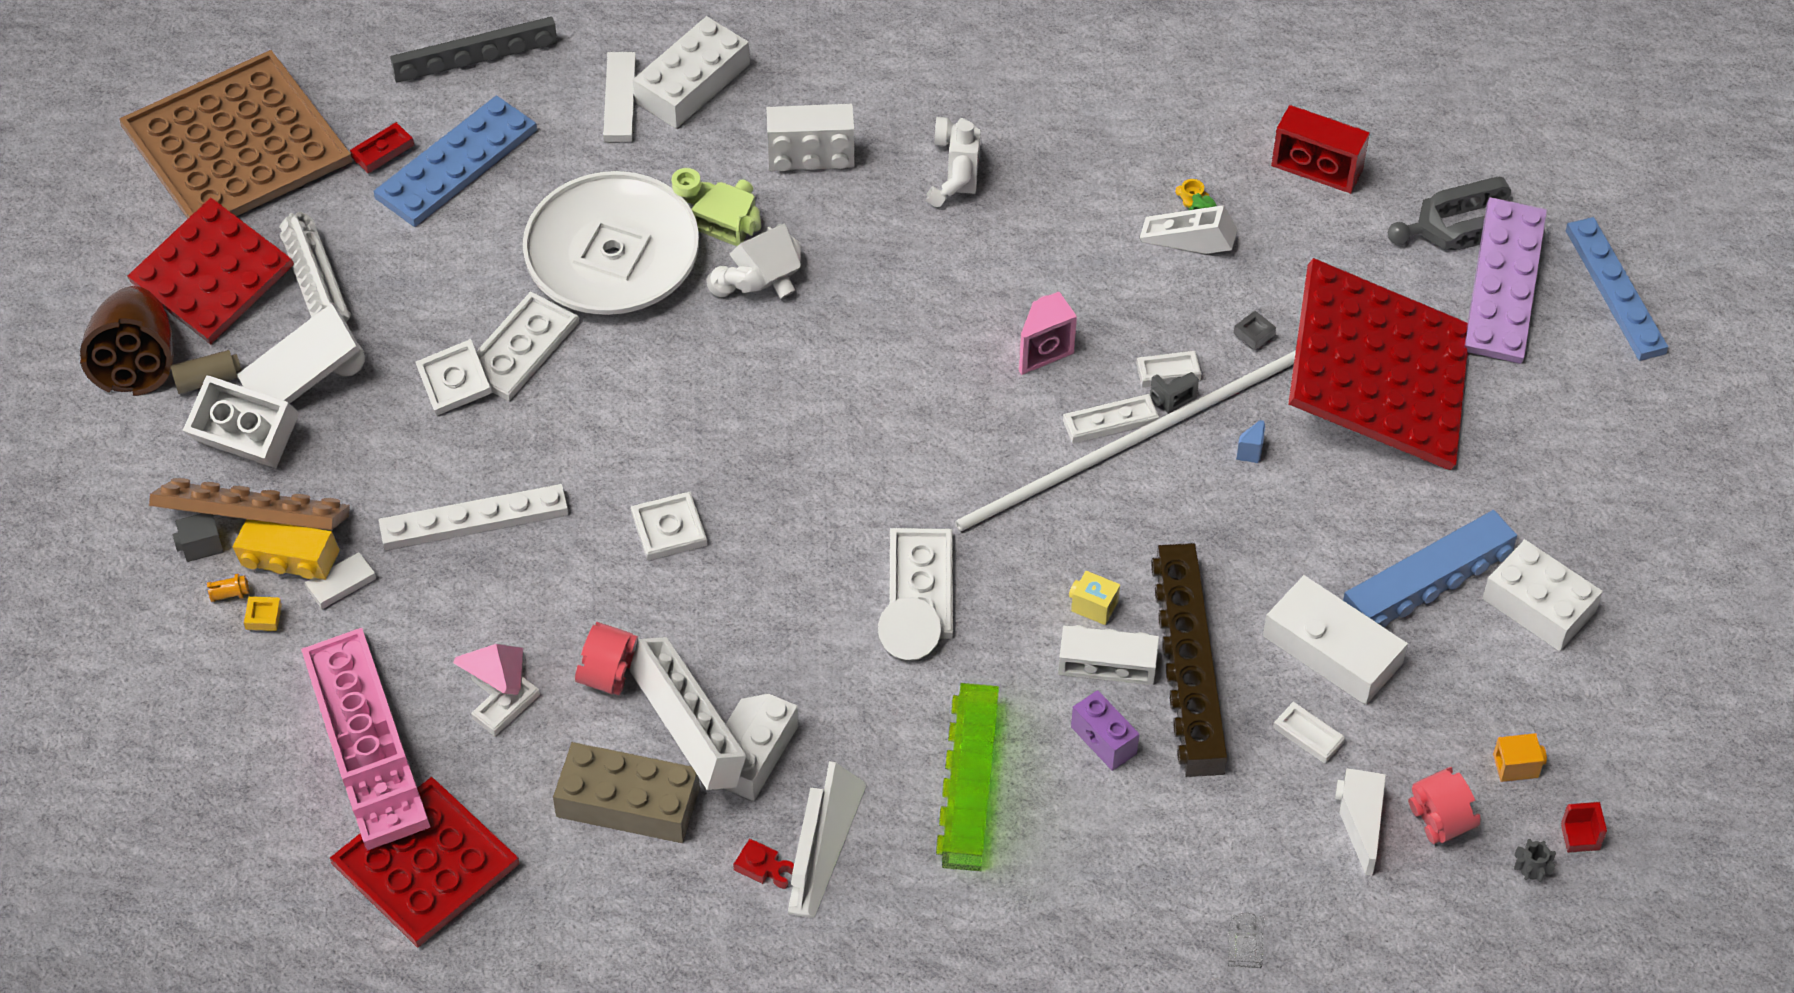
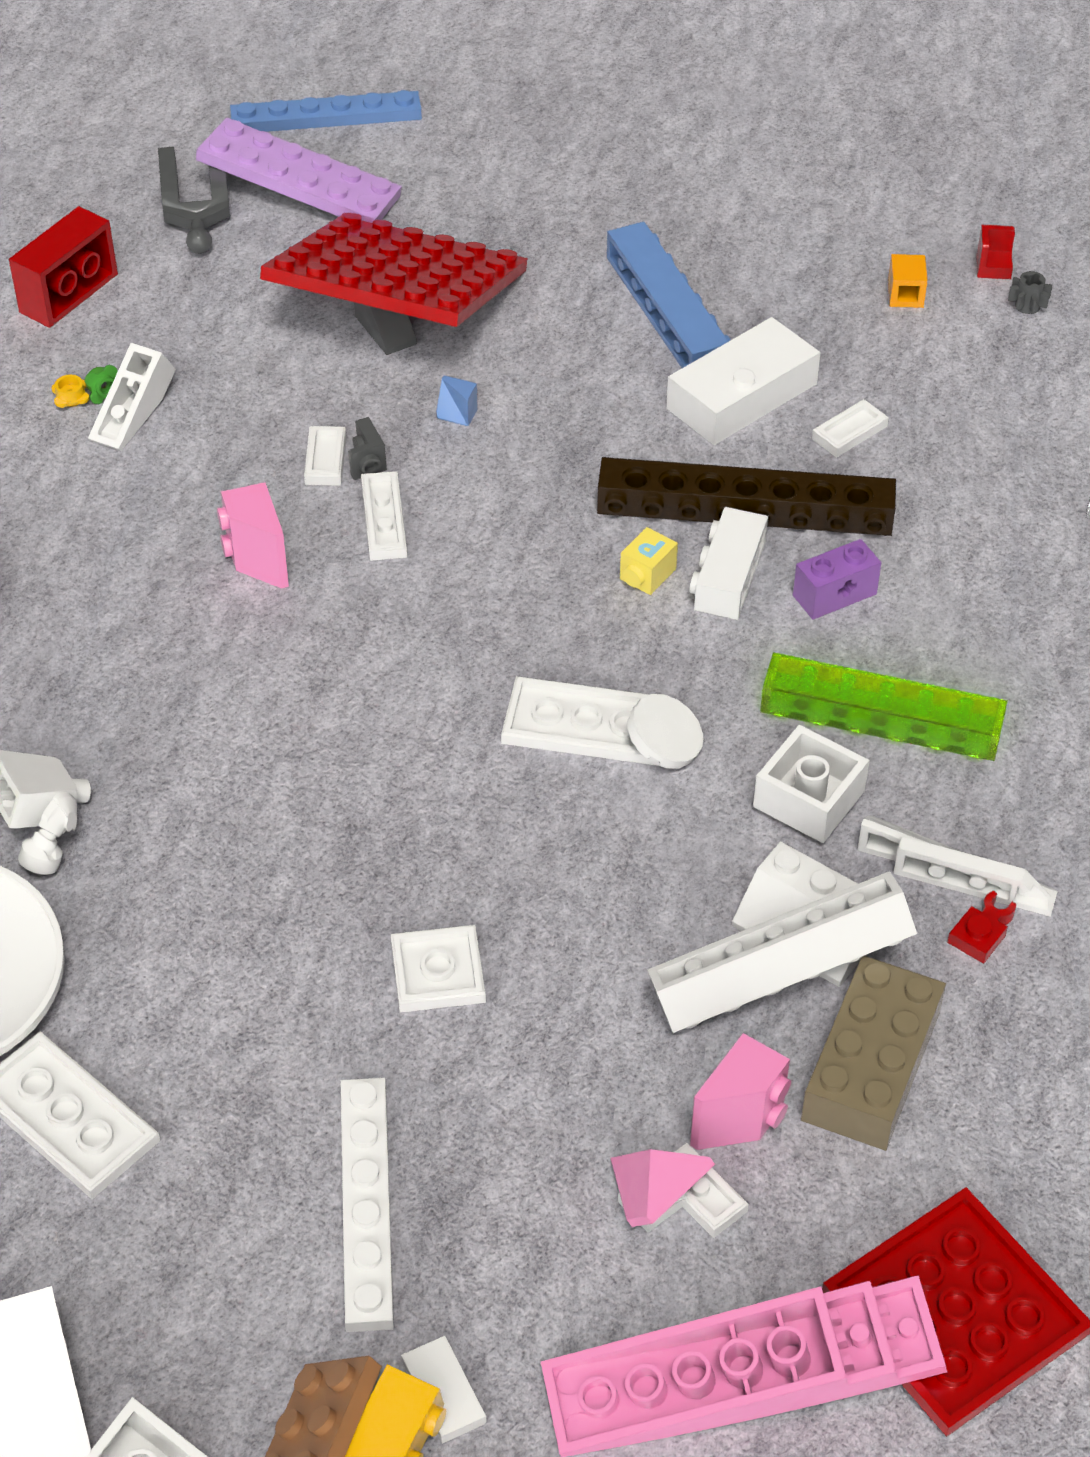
camera: 80 degrees left, 5 degrees down
(453, 377) = (106, 1197): white tile -> none
(569, 705) = (741, 1096): none -> bright pink slope
(605, 658) = (665, 1045): coral brick -> none
(870, 727) = (810, 783): none -> white brick
(1125, 442) = (418, 500): white piece -> none
(1254, 330) = (297, 373): flat silver plate -> none
(1361, 812) = (967, 400): white slope -> none
(1444, 805) = (970, 332): coral brick -> none
(1542, 595) = (714, 226): white brick -> none

